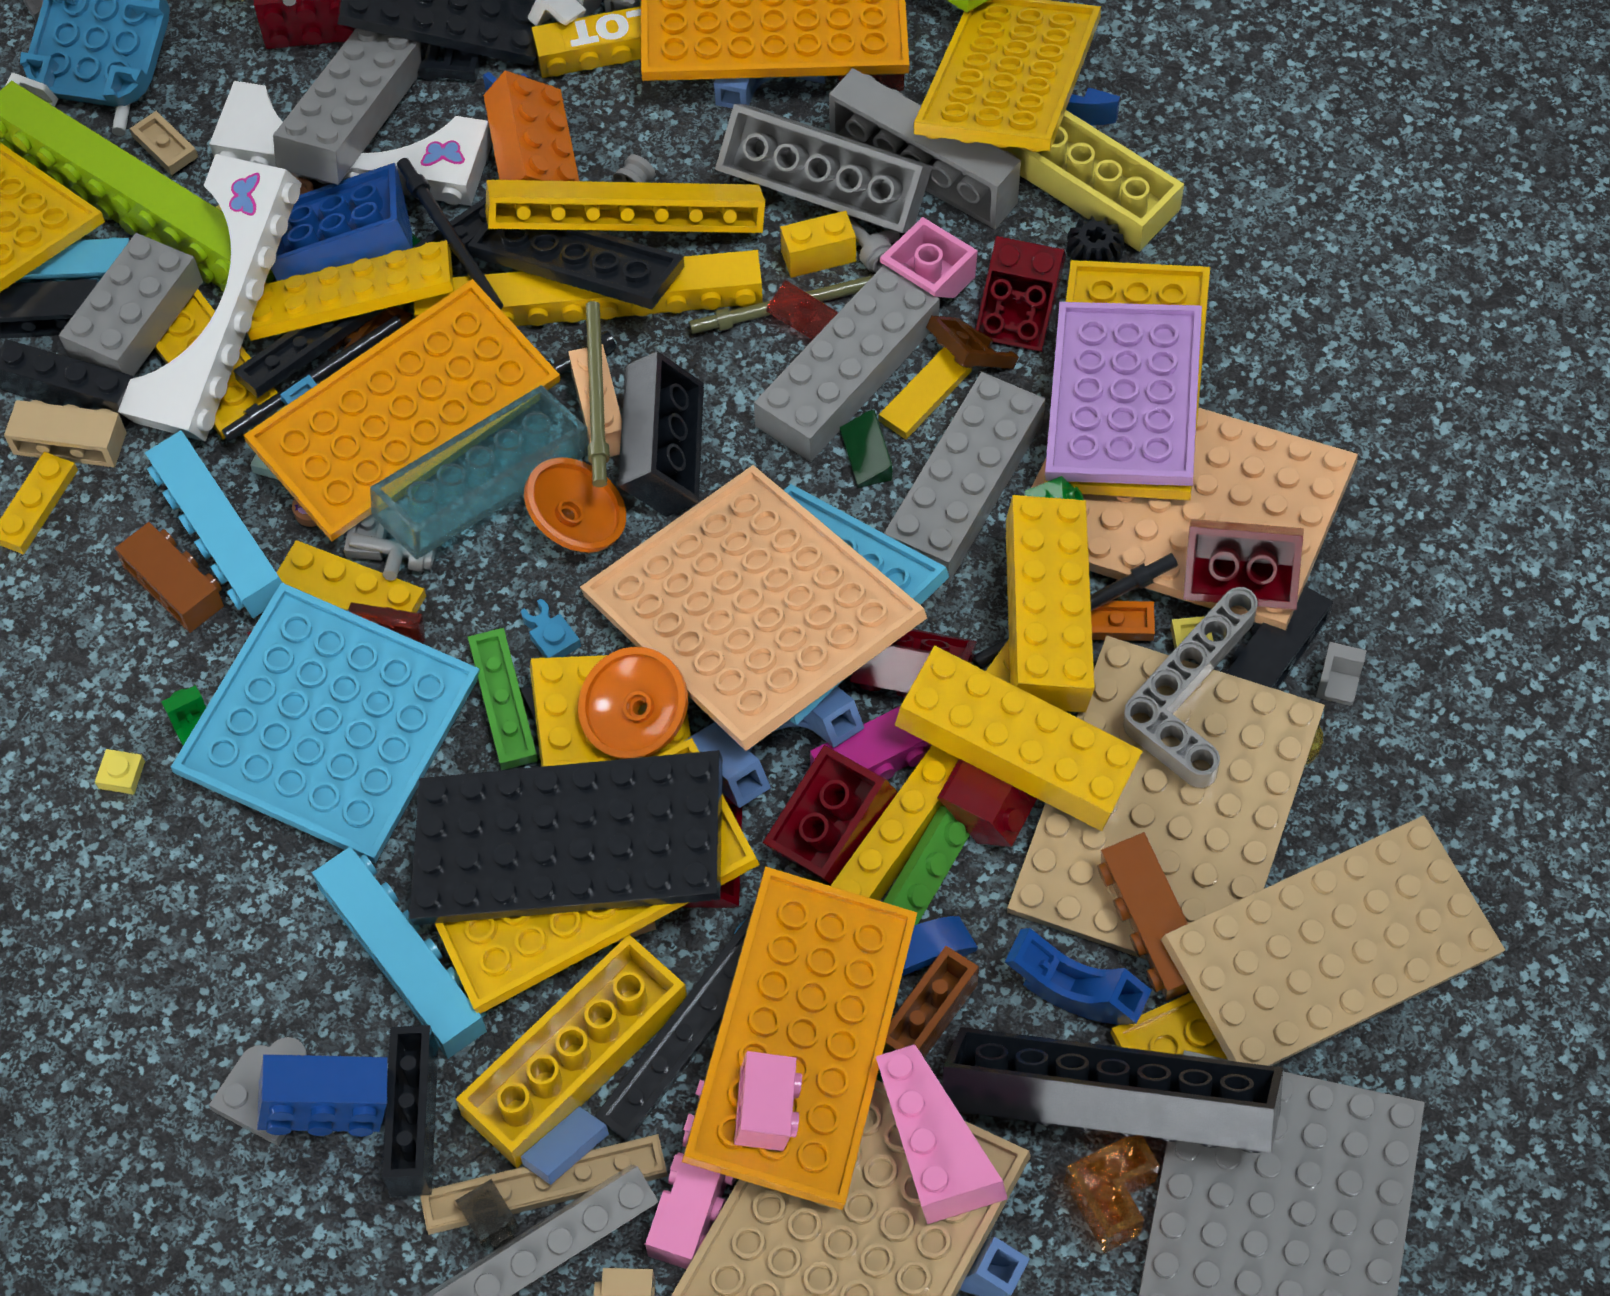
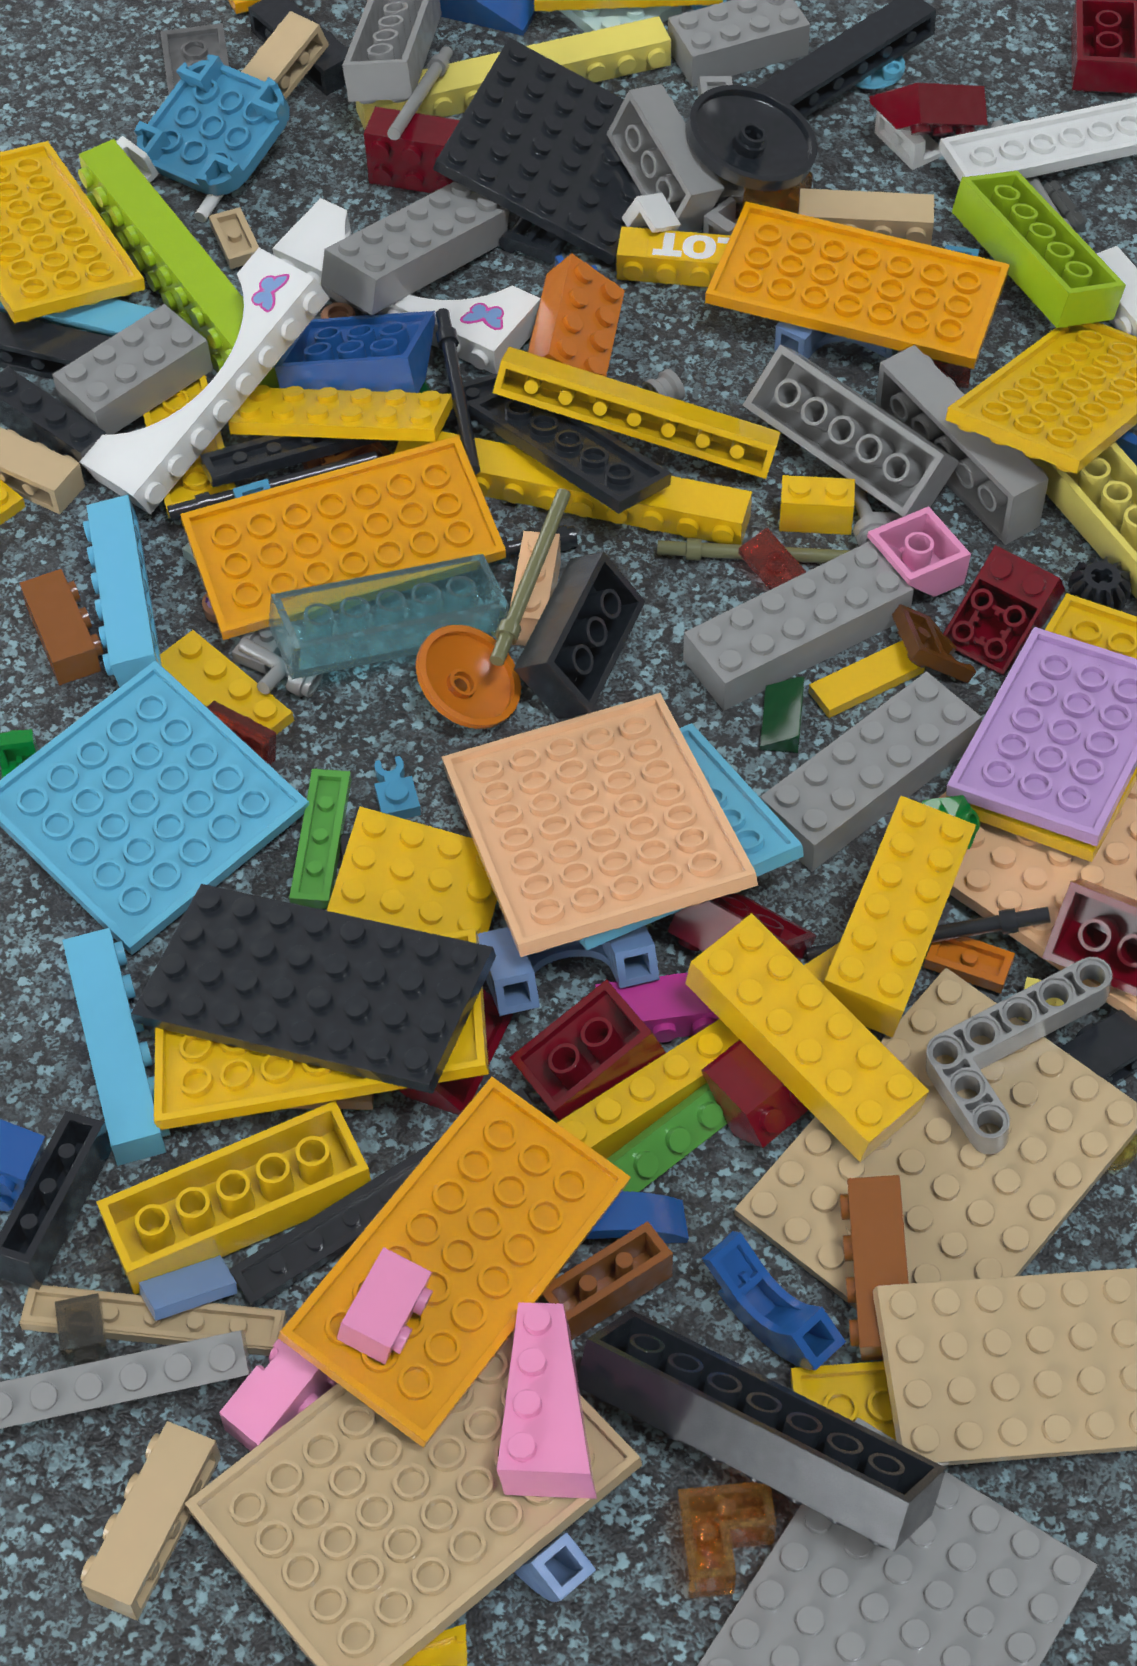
camera: 20 degrees right, 5 degrees down
(617, 690) = (427, 863): orange dish -> none

